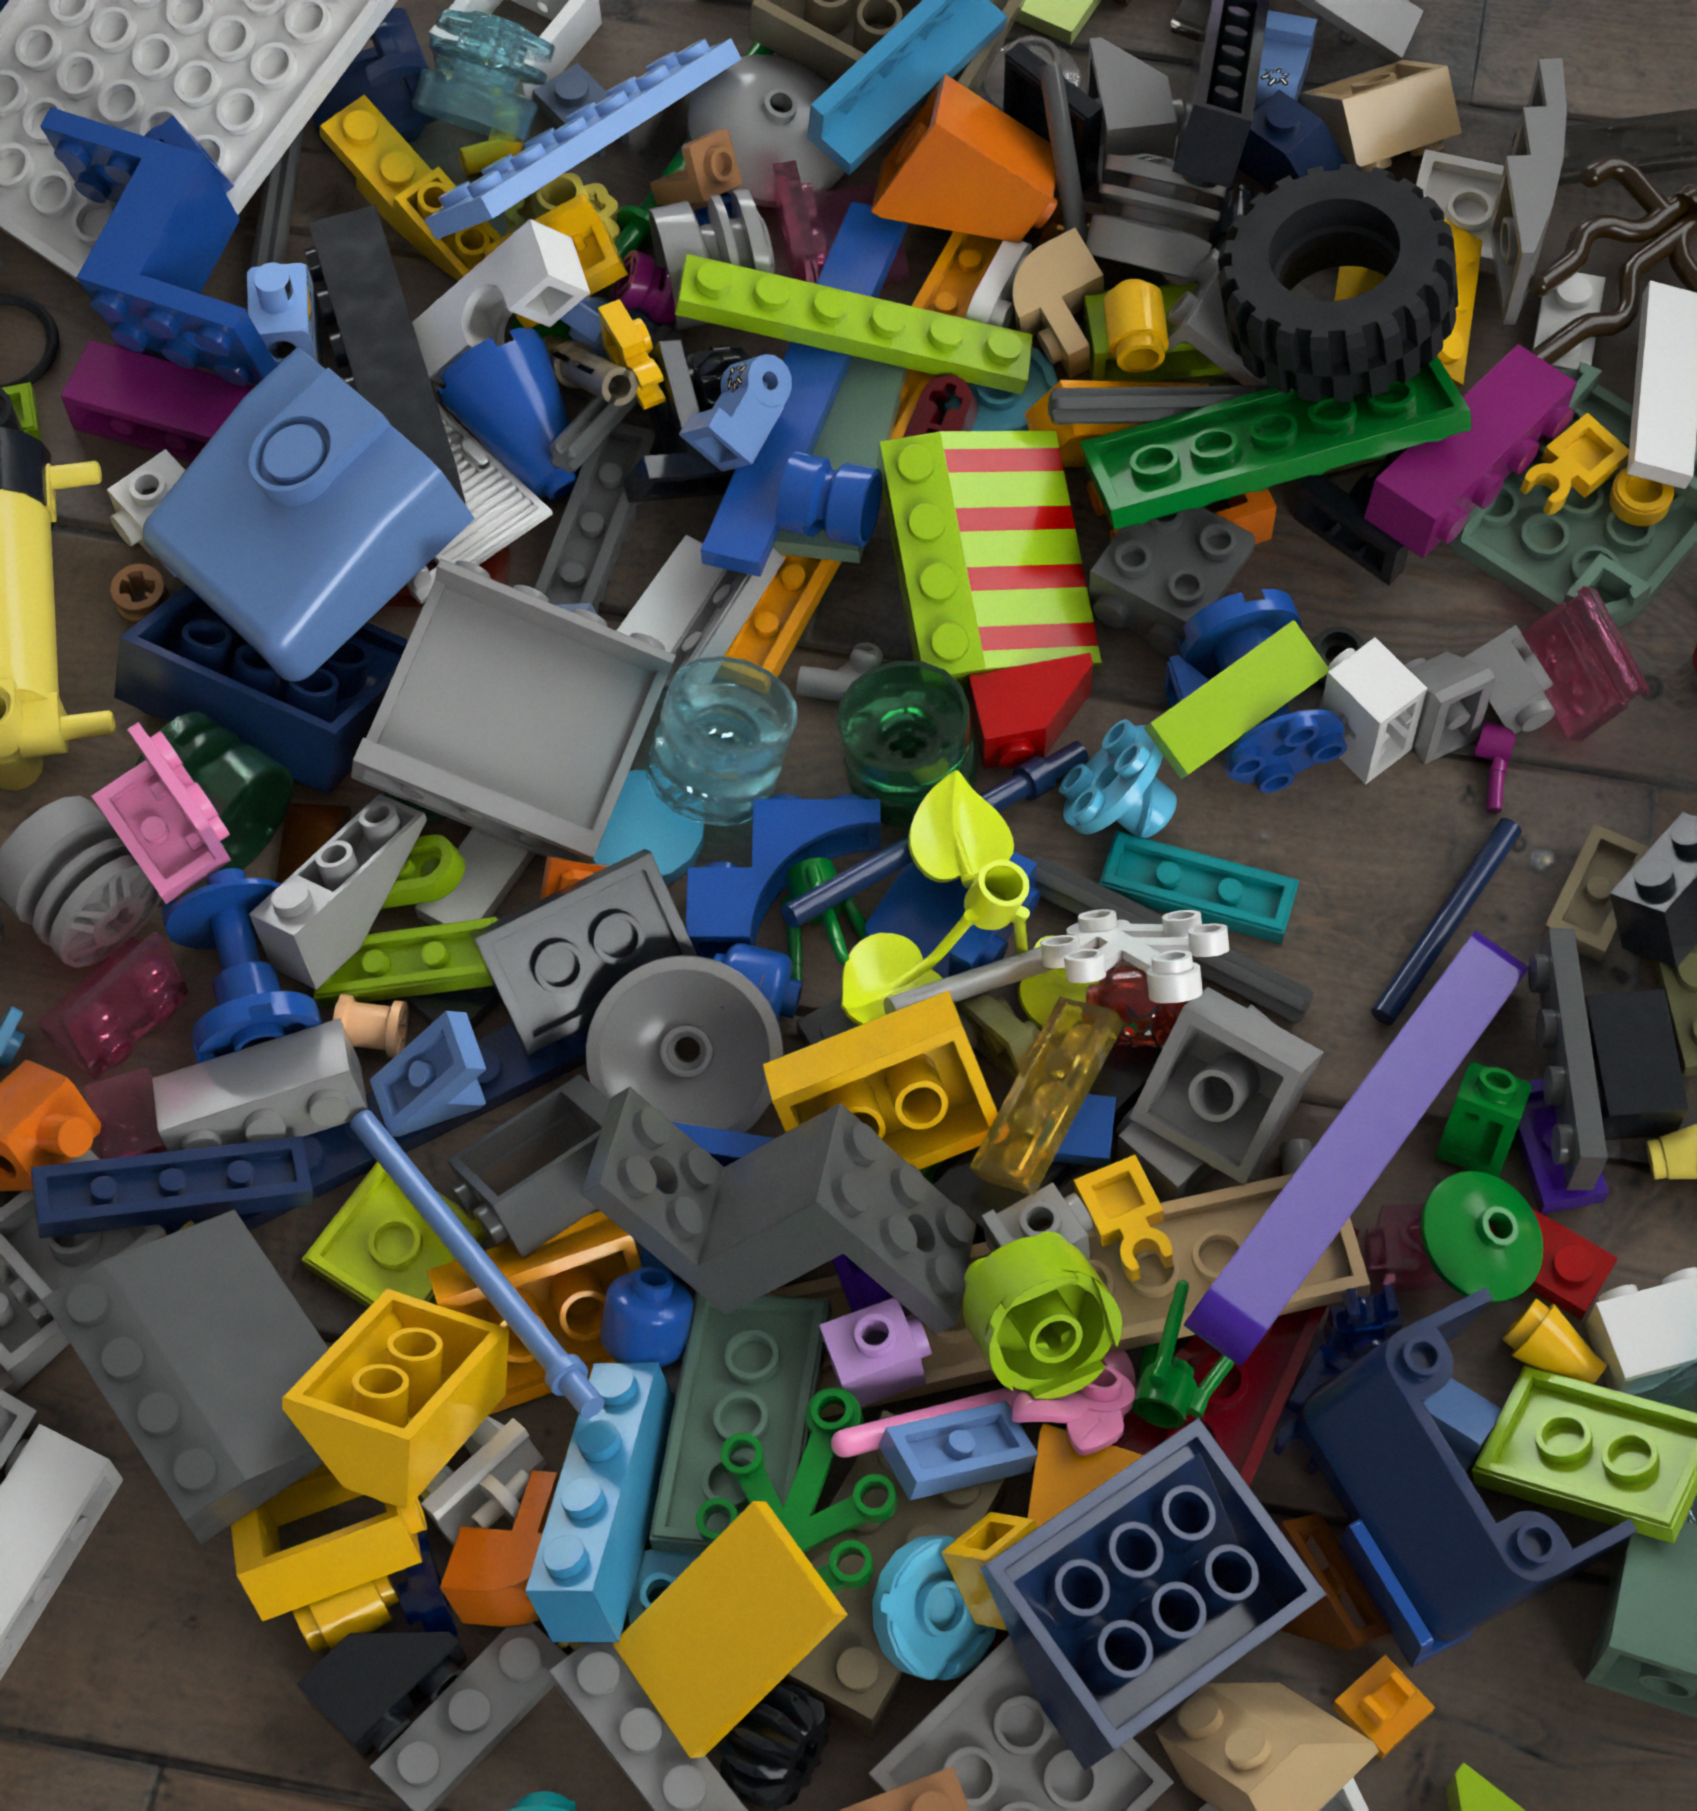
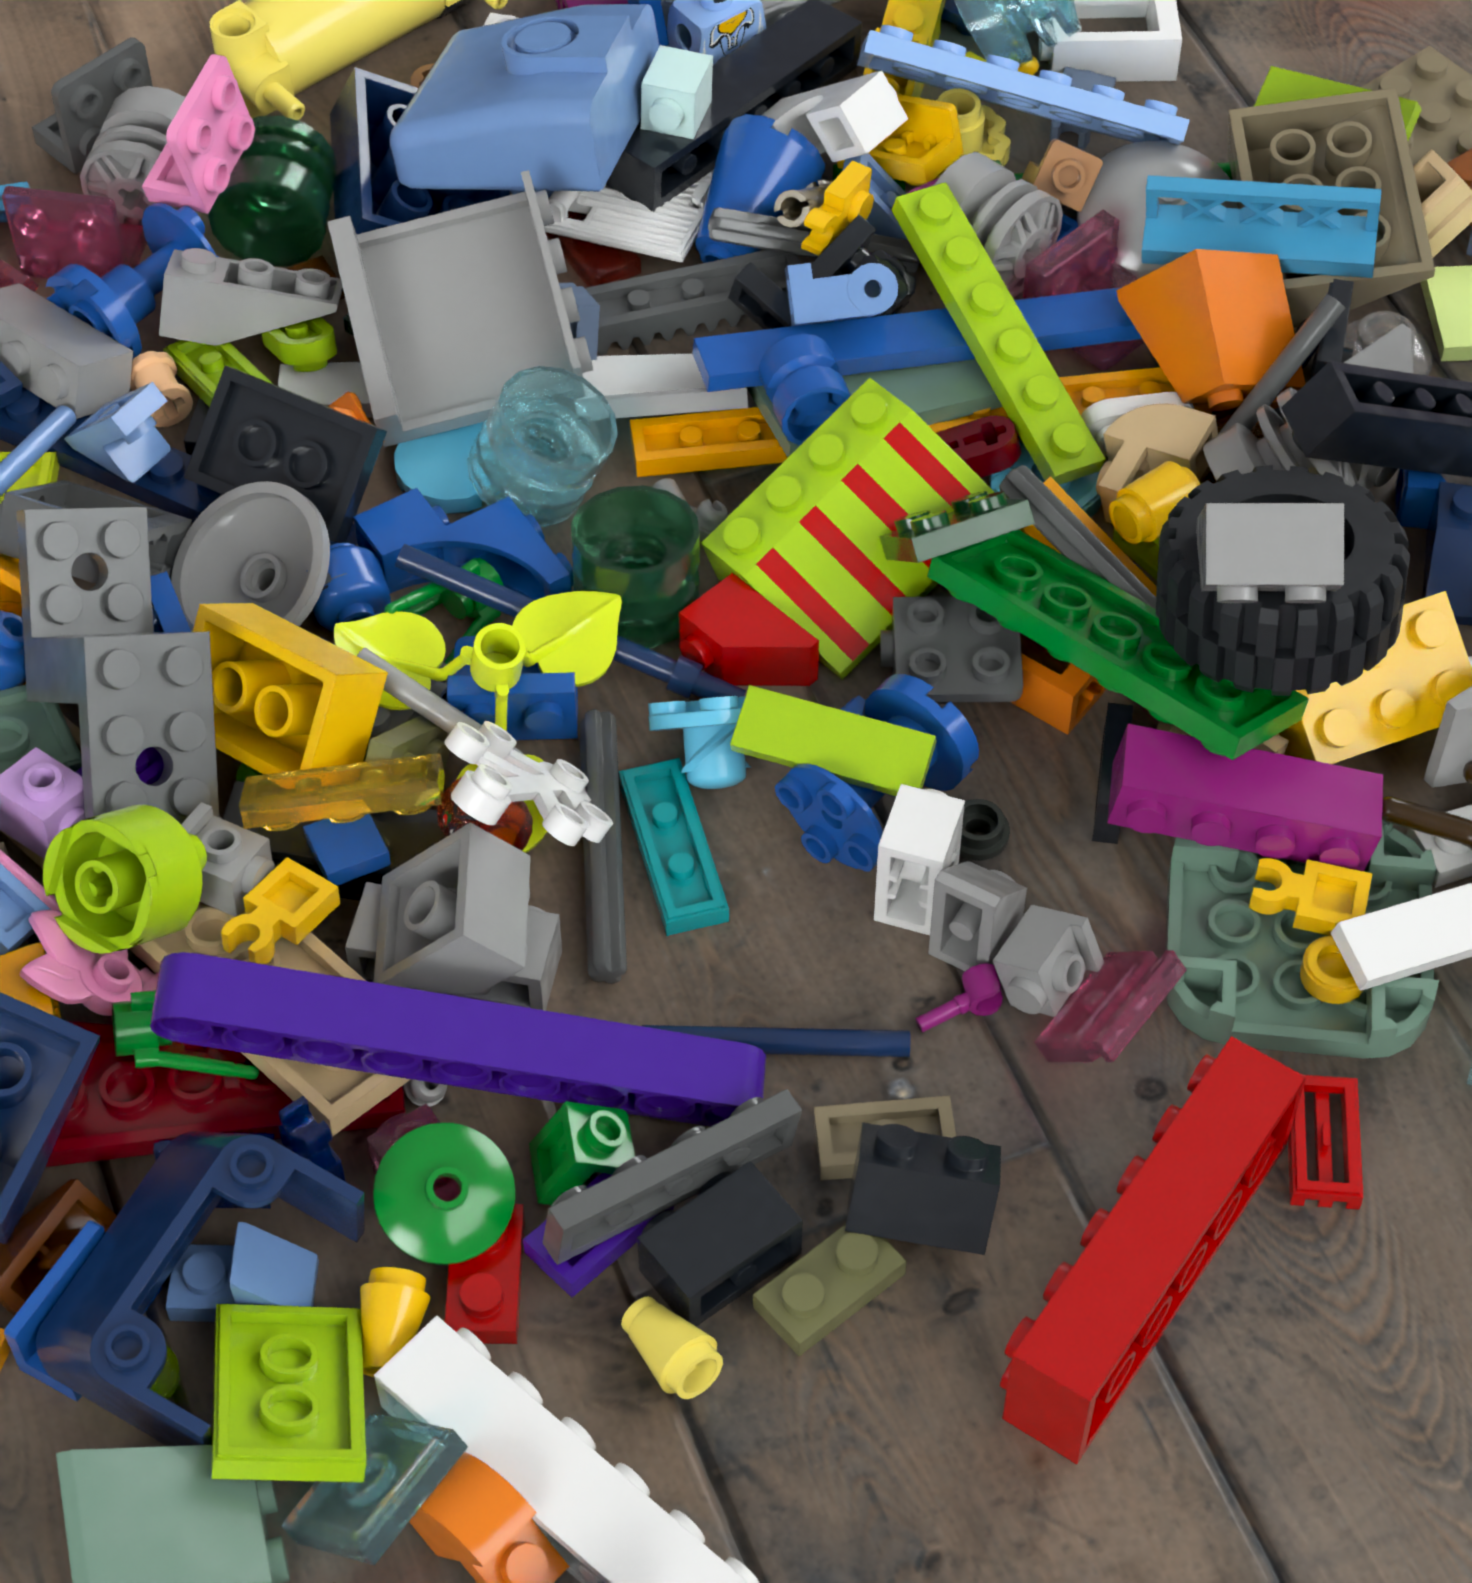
camera: 55 degrees right, 10 degrees down
(393, 387) = (676, 92): none -> light aqua brick
(1087, 479) = (972, 521): none -> plate
(1376, 264) = (1271, 549): none -> light grey slope

